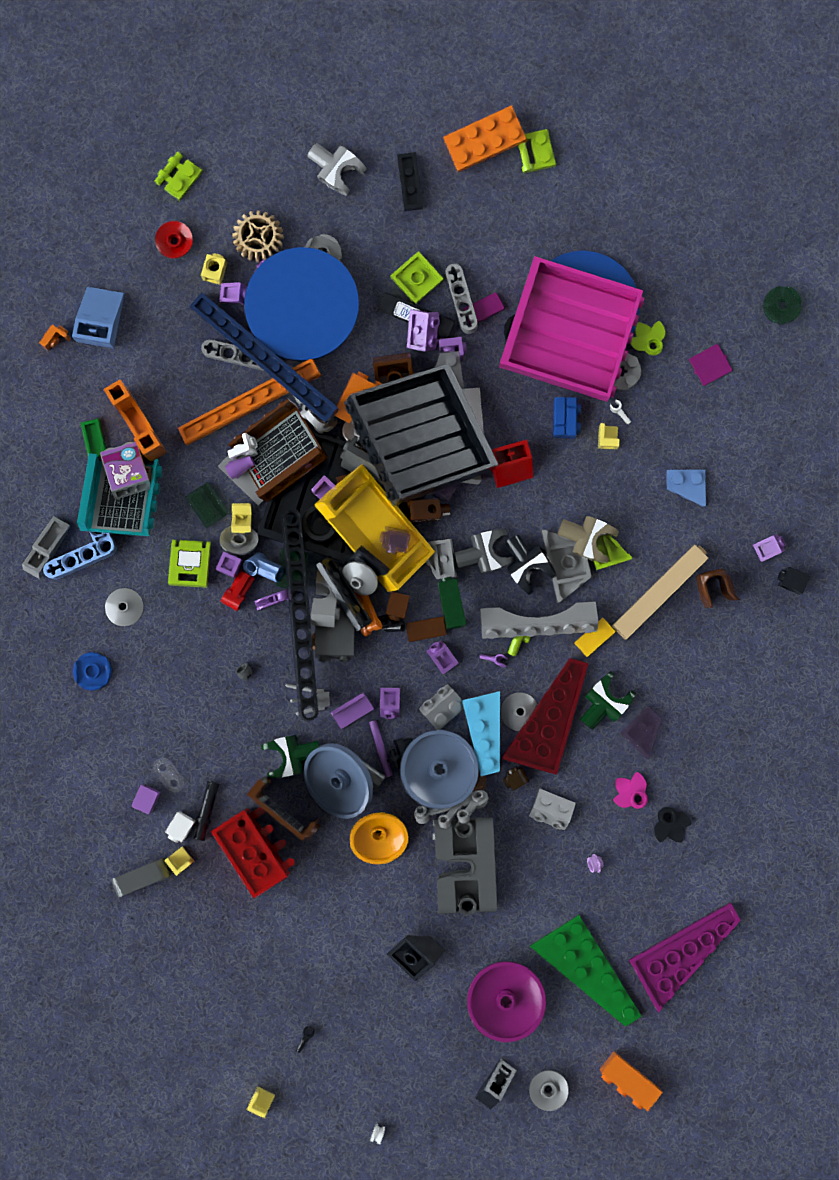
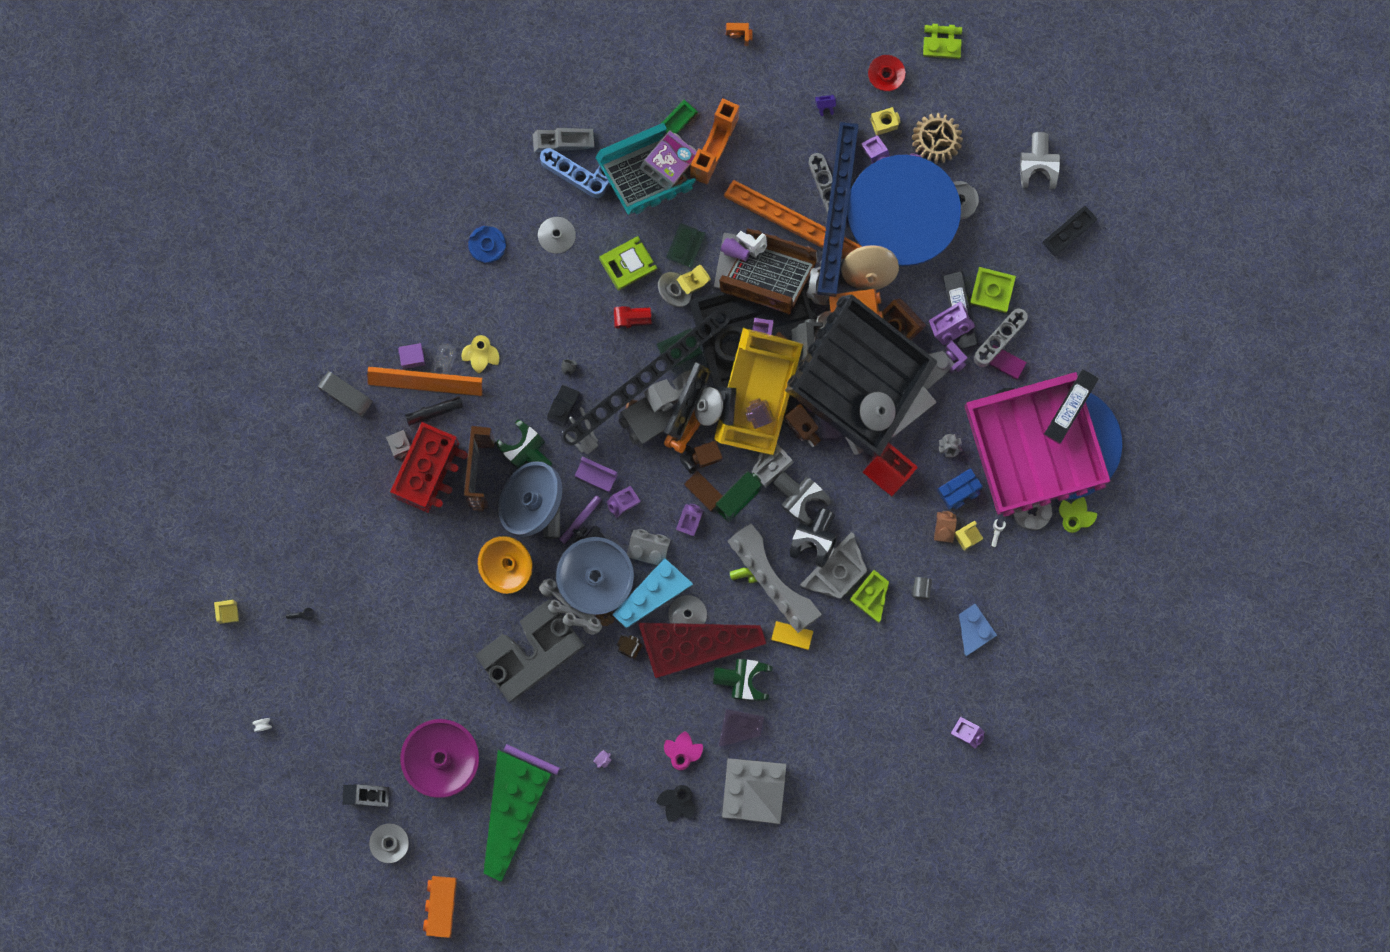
camera: 55 degrees right, 5 degrees down
(98, 317) = (780, 56): medium blue slope -> none
(164, 306) = (825, 102): none -> dark purple tile
(175, 802) = (424, 381): none -> orange tile
(179, 861) = (379, 416): light yellow panel -> none
(180, 827) = (406, 398): white brick -> none
(186, 739) = (480, 356): none -> light yellow plate
(215, 859) = (399, 444): none -> light grey bracket
(229, 565) = (648, 295): medium lavender brick -> none
(262, 566) = (665, 322): medium blue piece -> none
(274, 699) = (563, 406): none -> black arch
(275, 598) = (646, 351): medium lavender piece -> none
(332, 365) = (870, 267): none -> tan dish
(416, 954) = (429, 659): black slope -> none
(455, 445) = (870, 411): none -> light grey dish
(485, 138) = (1149, 268): orange plate -> none
(496, 659) = (718, 566): medium lavender hand -> none
(524, 400) = (950, 445): none -> light grey gear
(541, 150) = (1175, 319): lime plate -> none
(552, 809) = (623, 694): light grey bracket -> none
(555, 923) = (531, 759): none -> medium lavender bar
(561, 279) = (1071, 406): none -> tile
(586, 537) = (870, 571): dark tan connector -> none
(588, 450) = (945, 526): none -> nougat bracket
(629, 505) = (921, 588): none -> dark grey piece
(660, 591) = (867, 664): tan brick -> none
(677, 957) = (565, 878): magenta wing -> none
(703, 755) = (753, 791): none -> light grey slope
(710, 364) = (1090, 582): magenta piece -> none
(725, 582) = (912, 713): reddish brown piece -> none
(792, 306) = (1191, 602): clear green plate -> none
(793, 580) = (953, 770): black brick -> none

